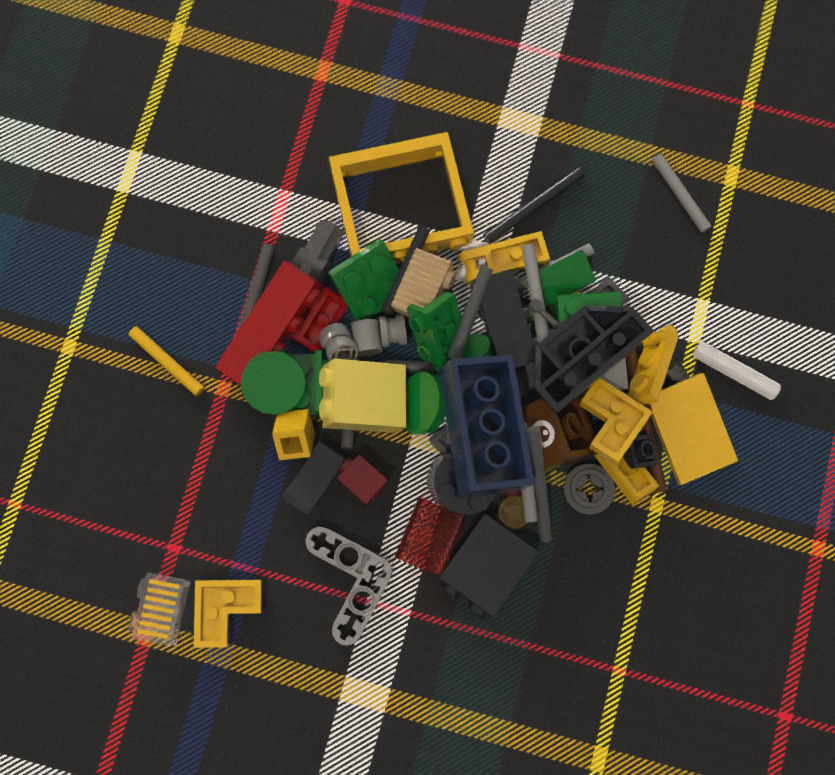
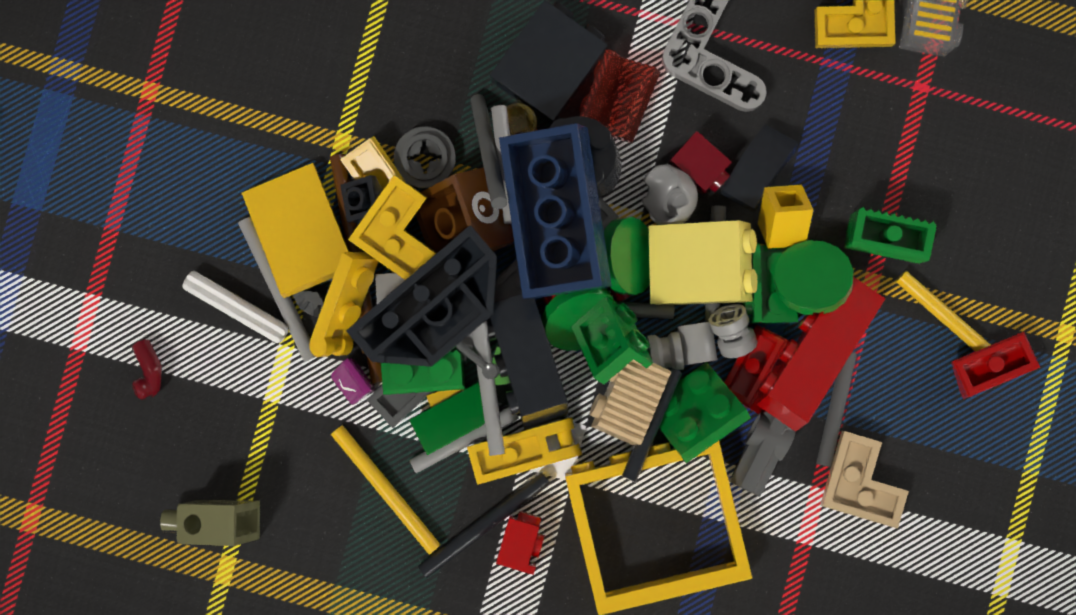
camera: 175 degrees left, 10 degrees up
(128, 317) = (994, 365): none -> red slope
(208, 418) = (890, 235): none -> green brick
(245, 225) = (851, 487): none -> tan plate
(387, 452) = (670, 195): none -> light grey hair
(470, 312) = (572, 359): dark grey bar -> none
(506, 187) = (521, 542): none -> red brick
(611, 231) = (385, 489): none -> yellow bar
(642, 308) = (352, 381): none -> magenta slope
(681, 193) = (293, 543): light grey bar -> none
(694, 369) = (285, 305): none -> light grey bar
(744, 203) = (213, 522): none -> olive torso
(801, 323) = (151, 369): none -> dark red arm

